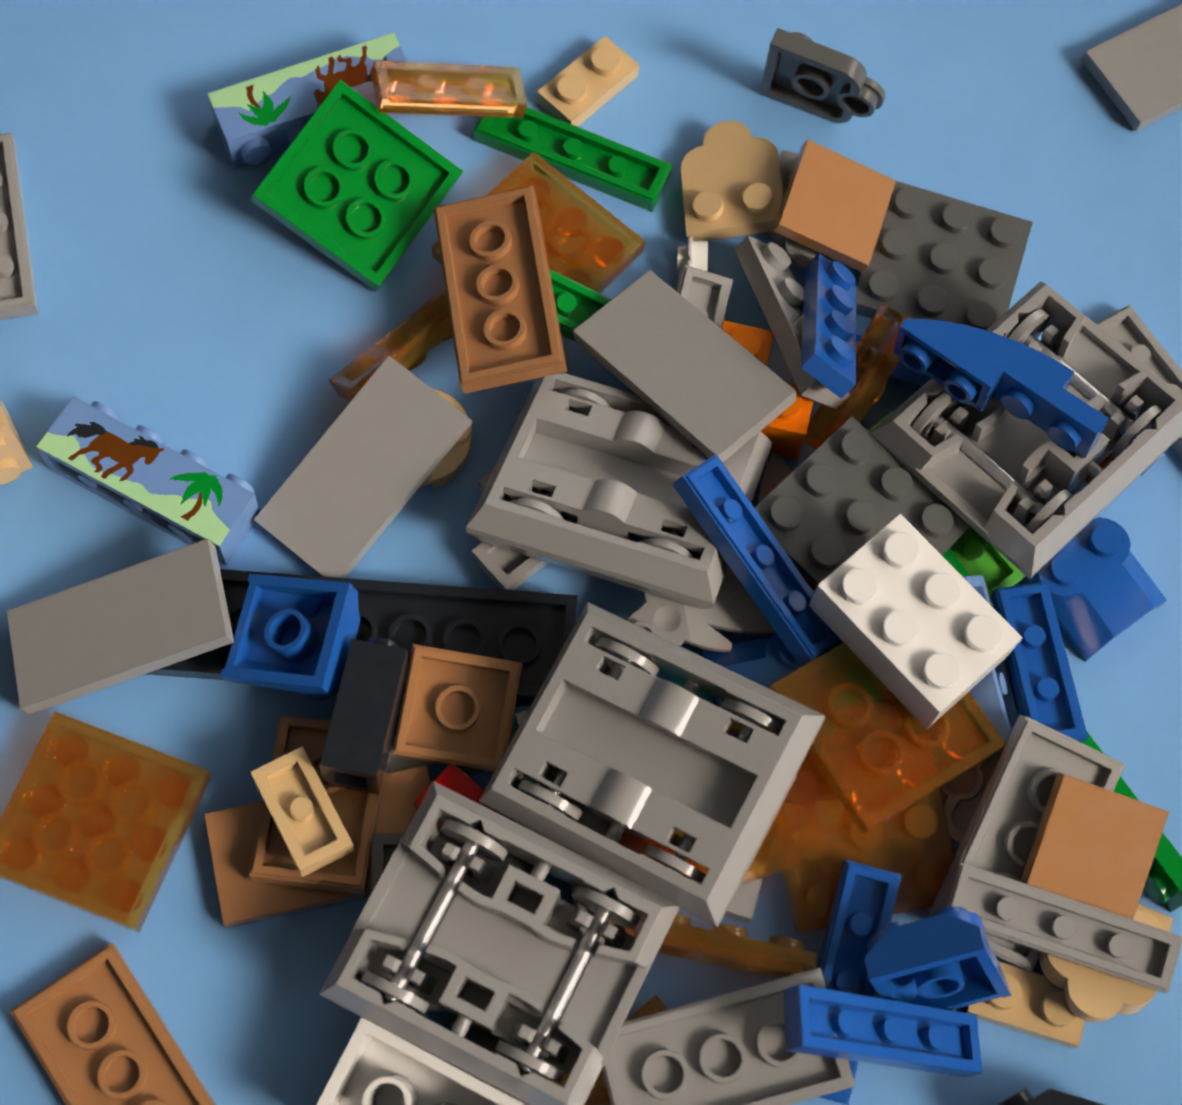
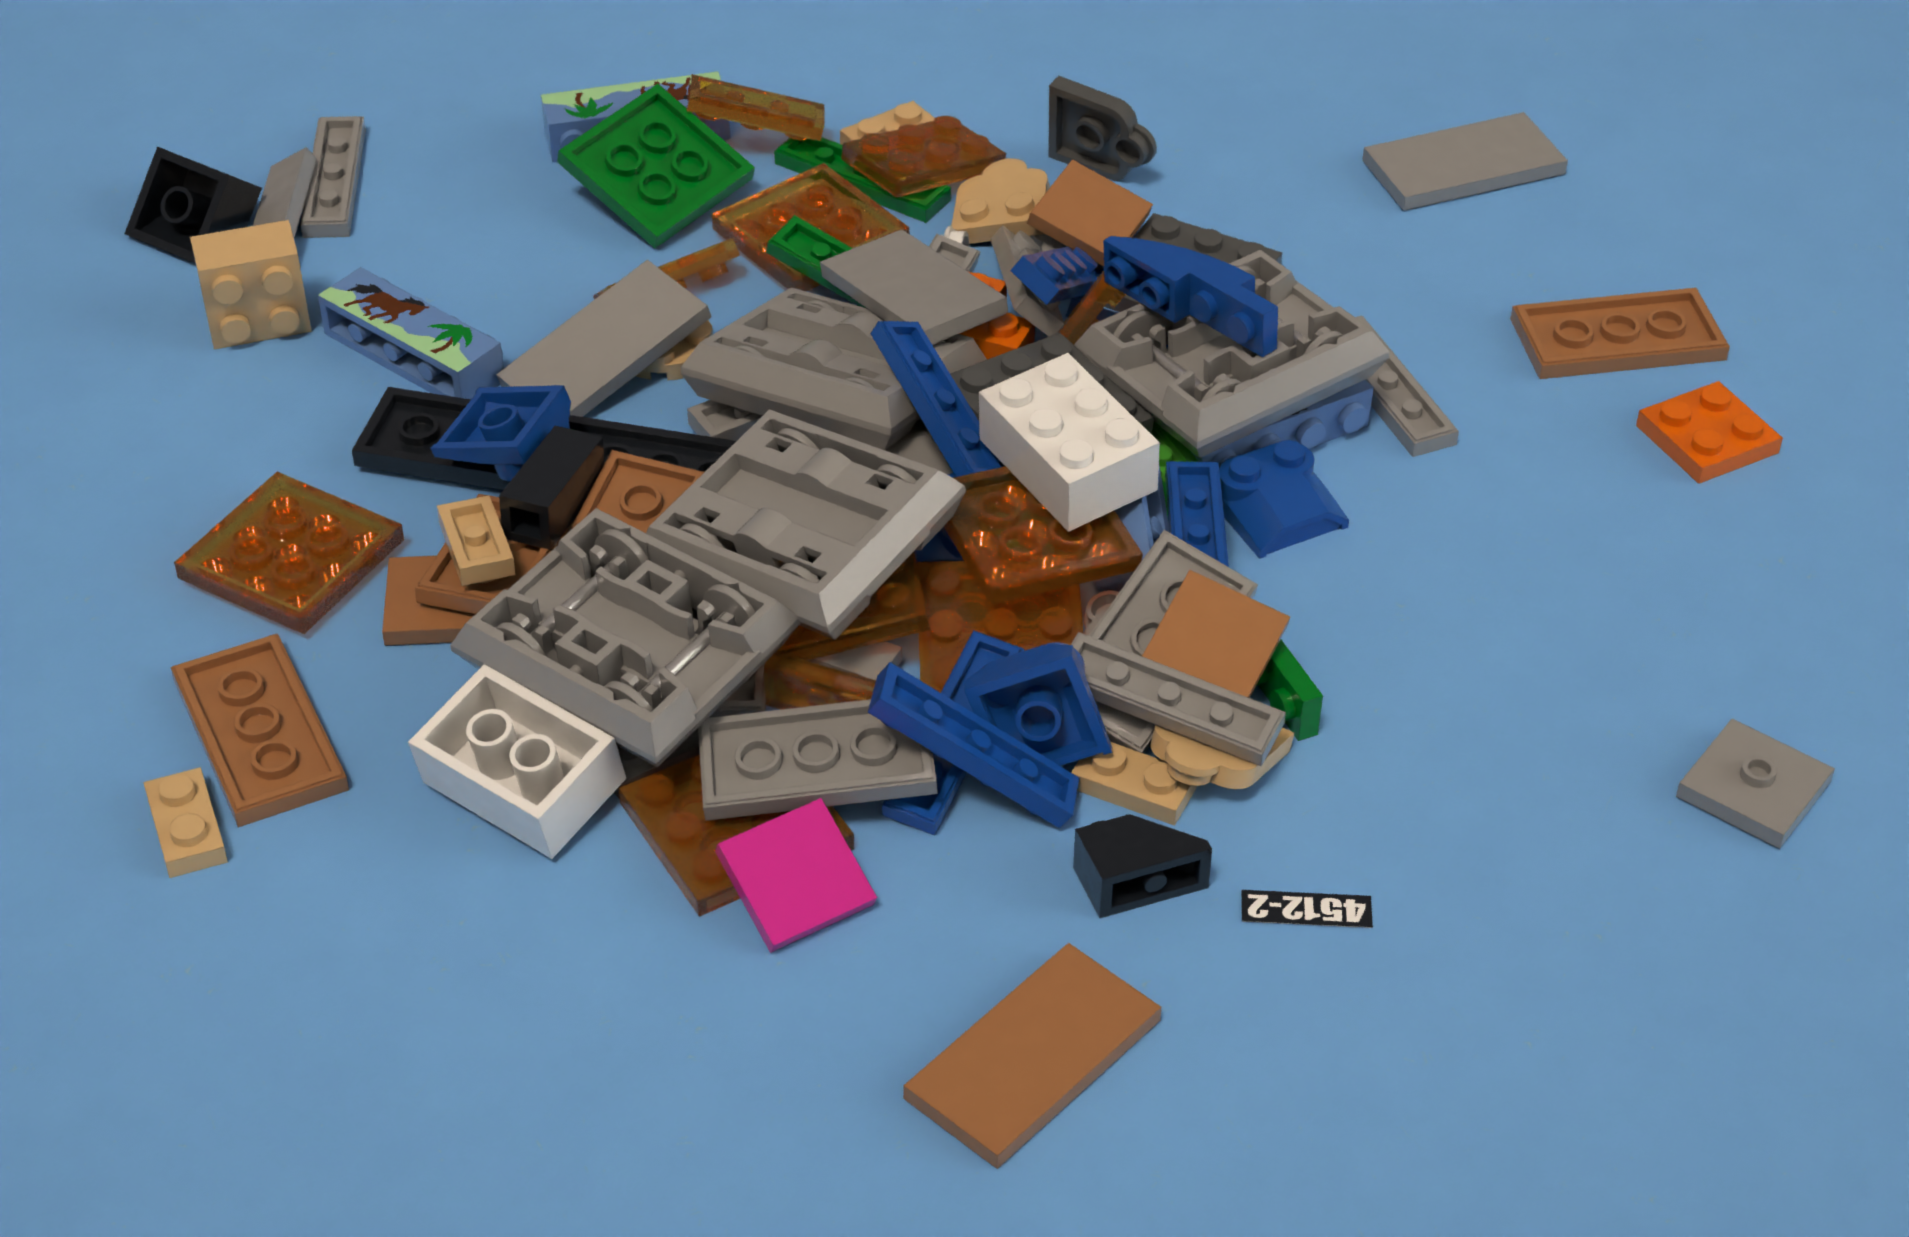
camera: 15 degrees right, 25 degrees down
(119, 627) = (352, 419): light grey tile -> none
(499, 290) = (760, 229): medium nougat tile -> none
(635, 126) = (921, 155): none -> clear orange plate

